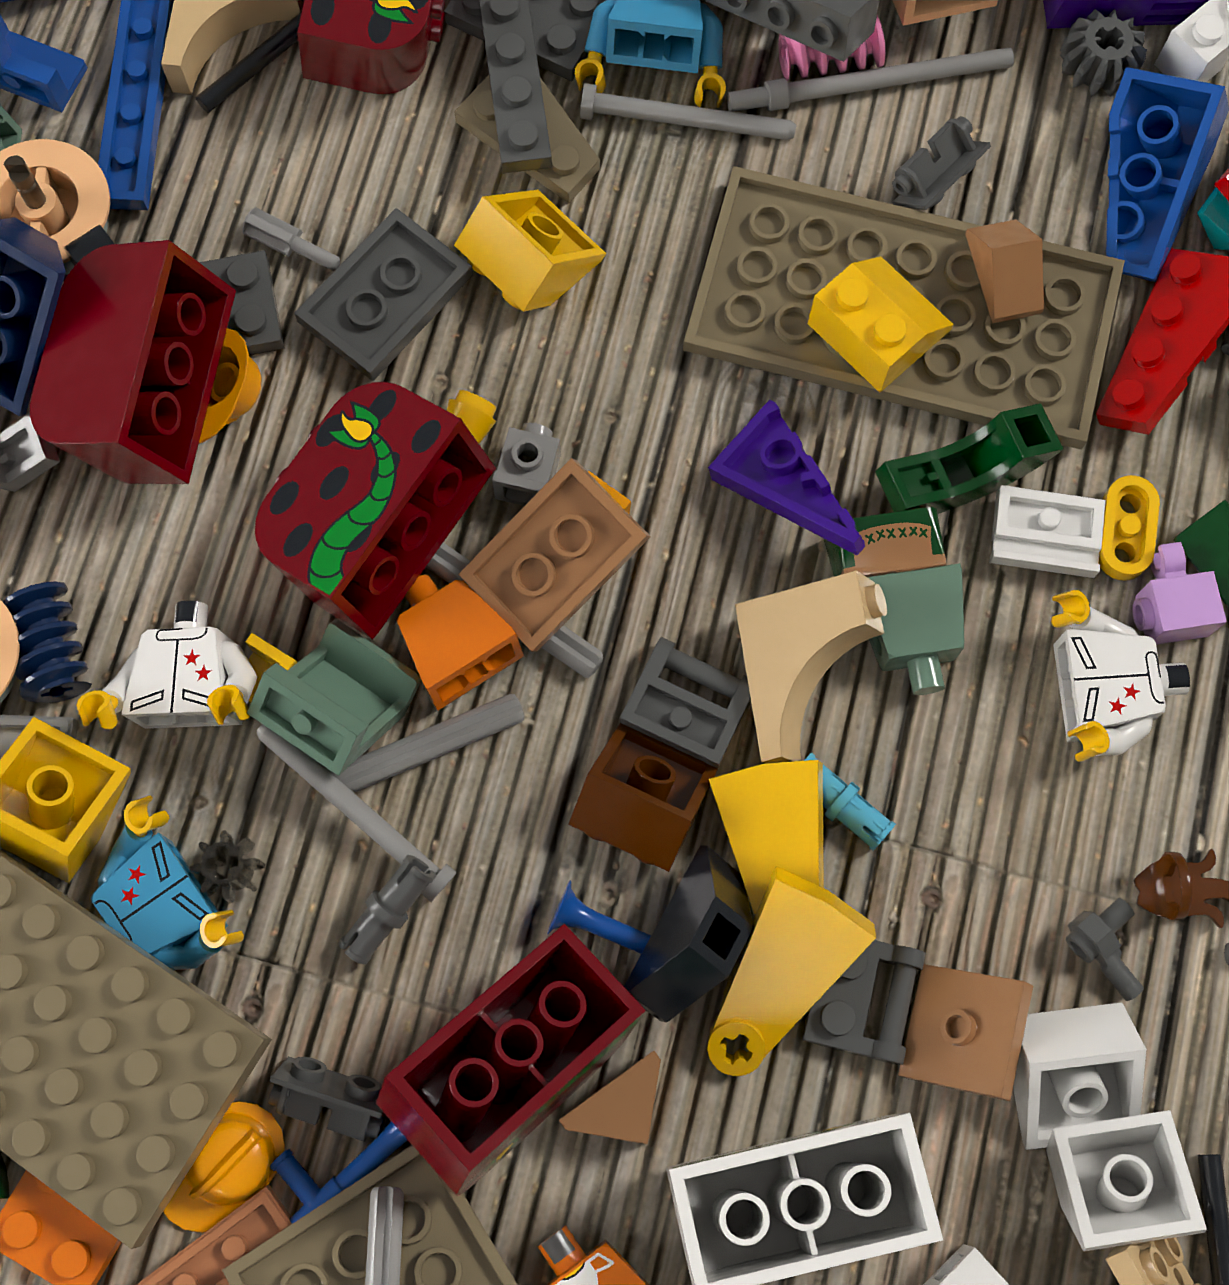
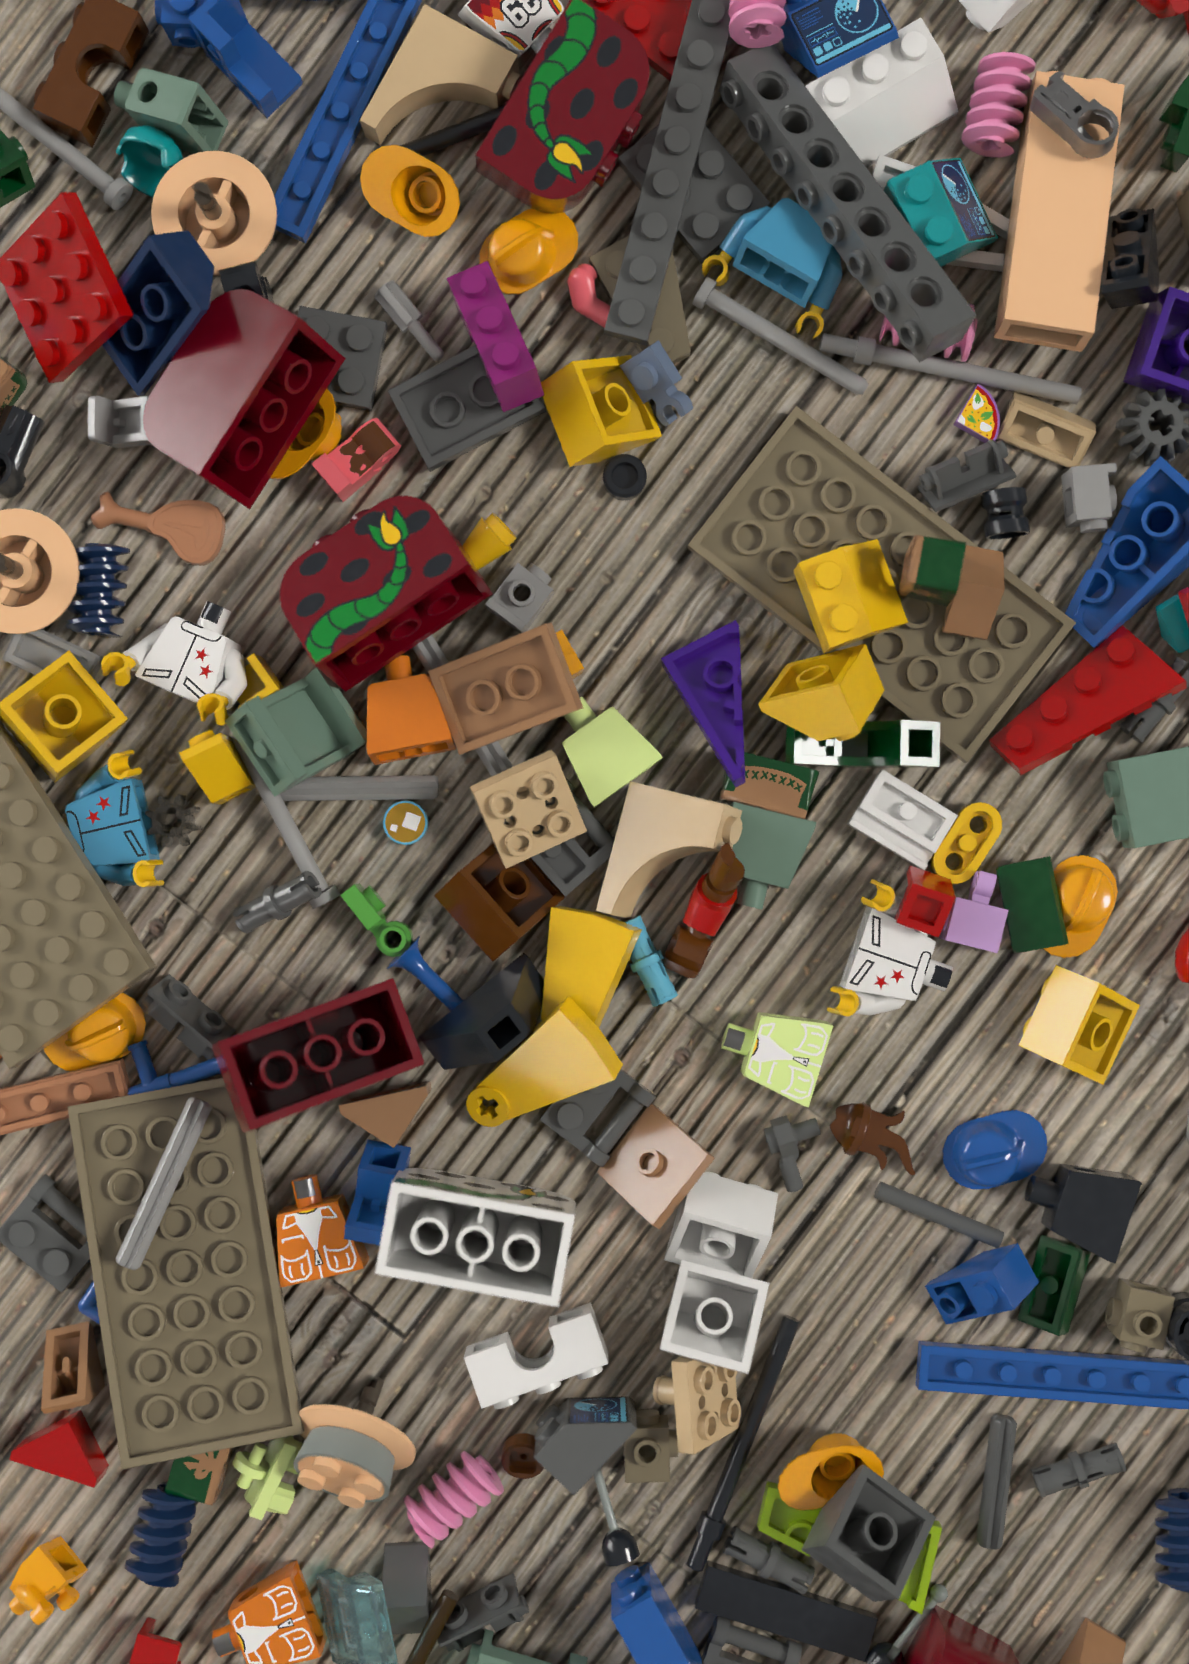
camera: 25 degrees right, 15 degrees up
(128, 539) = (190, 526): none -> nougat piece
(241, 110) = (410, 190): none -> light orange piece
(259, 776) = (217, 767): none -> yellow slope
(287, 396) = (357, 458): none -> coral leg
(374, 196) = (495, 336): none -> magenta arch
(386, 133) = (529, 249): none -> light orange piece
(465, 150) = (583, 294): none -> coral arm
(496, 872) = (367, 907): none -> bright green plate
(500, 761) = (405, 822): none -> pearl gold tile
(572, 195) = (654, 378): none -> sand blue plate
(585, 307) = (624, 477): none -> black tile
(604, 675) = (523, 794): none -> tan plate
(649, 1211) = (374, 1179): none -> blue brick
(692, 588) = (606, 752): none -> yellowish green torso
(885, 714) = (704, 915): none -> reddish brown piece
(906, 423) = (826, 694): none -> yellow slope
(921, 110) = (980, 415): none -> tile
(957, 251) = (932, 569): none -> dark green piece
(997, 100) = (1046, 430): none -> tan slope
(997, 186) = (1005, 513): none -> black wheel
(1045, 839) = (781, 1053): none -> yellowish green torso
(1071, 139) = (1089, 497): none -> light grey brick
(1124, 597) = (926, 901): none -> red panel

